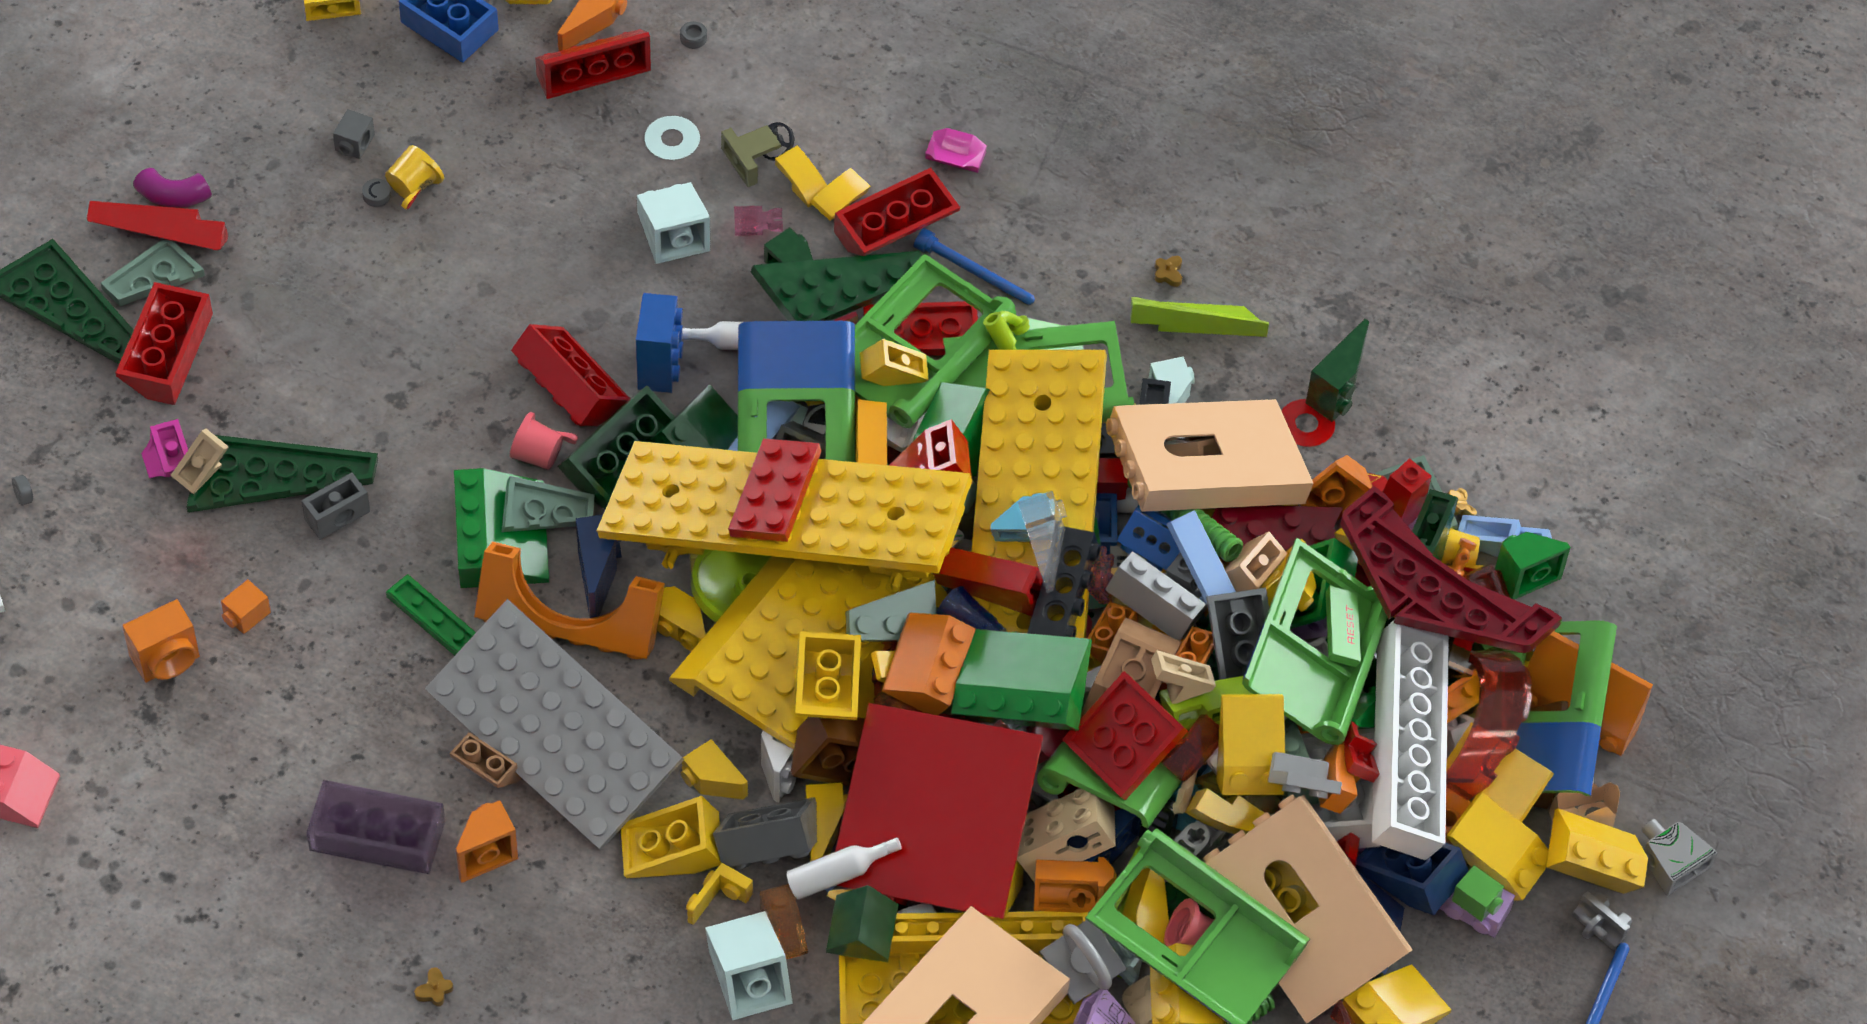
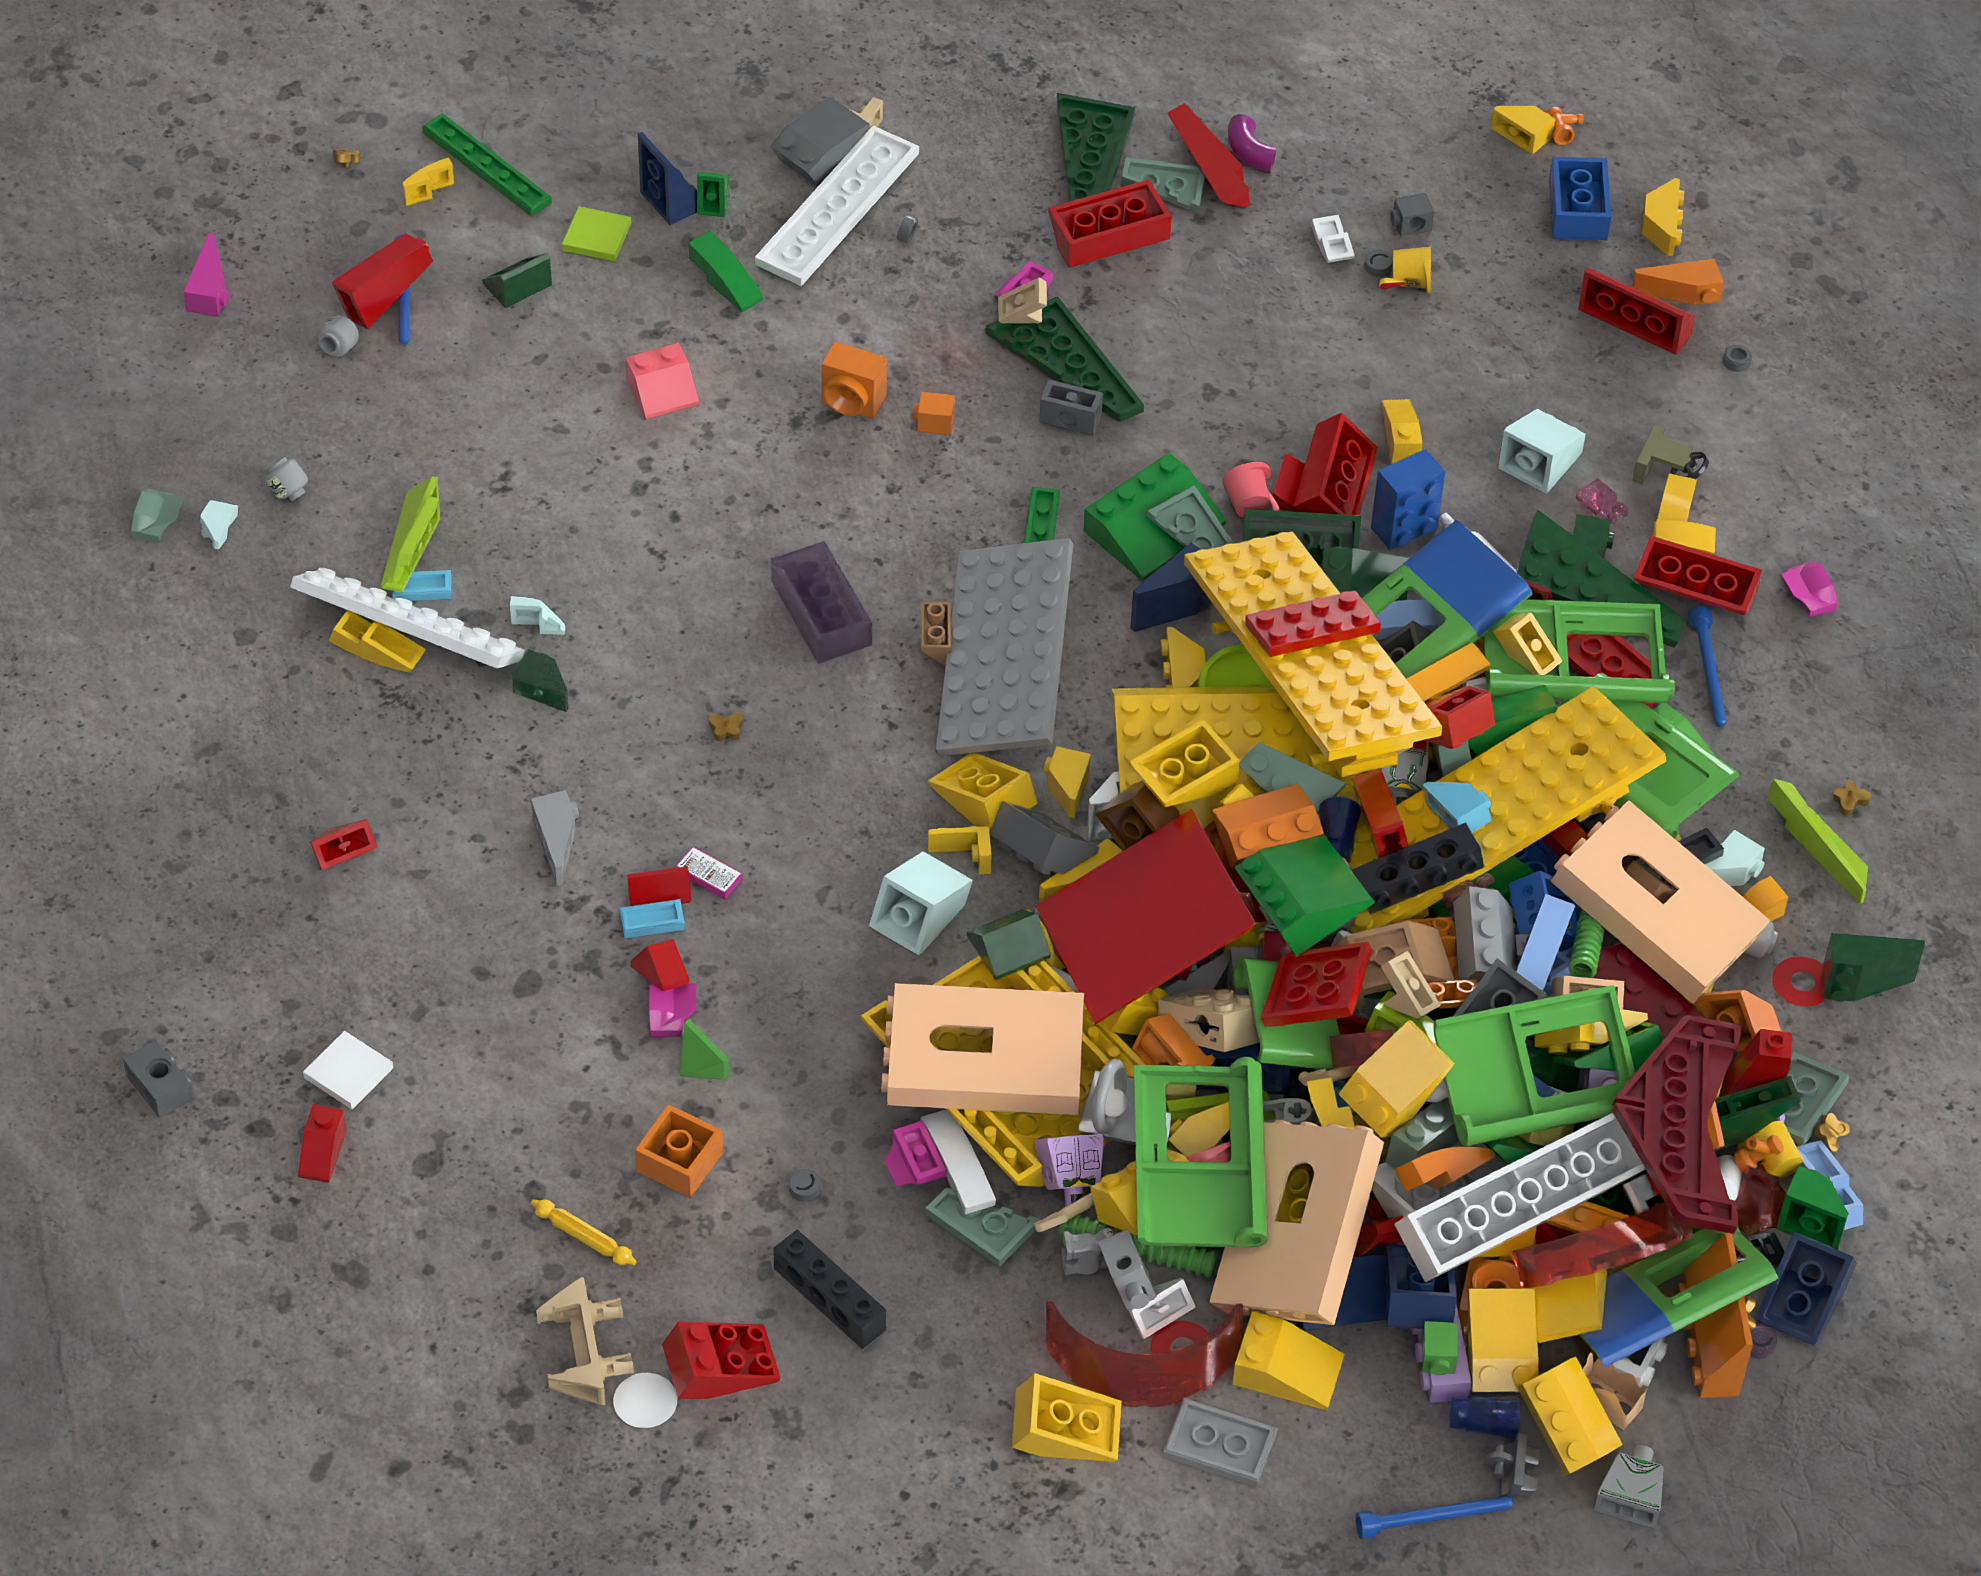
camera: 55 degrees right, 5 degrees down
(322, 207) = (1331, 239): none -> white slope
(486, 841) = (867, 671): orange slope -> none
(547, 411) = (1288, 482): none -> red slope
(566, 298) = (1401, 429): none -> yellow slope
(625, 630) = (1138, 643): orange arch -> none
(690, 137) = (1608, 408): light aqua piece -> none
(785, 919) = (979, 900): clear orange slope -> none
(836, 868) = (1043, 894): white piece -> none
(1002, 332) = (1632, 697): lime plant -> none
(1046, 532) = (1441, 815): clear slope -> none
(1223, 387) = (1767, 898): none -> light orange brick
(1302, 773) = (1400, 1128): light grey bracket -> none
(1343, 626) = (1575, 1078): tile -> none
(1358, 755) = (1467, 1166): red slope -> none
(1546, 904) = (1487, 1415): none -> clear blue plant
(1587, 599) = (1807, 1289): none -> dark blue slope

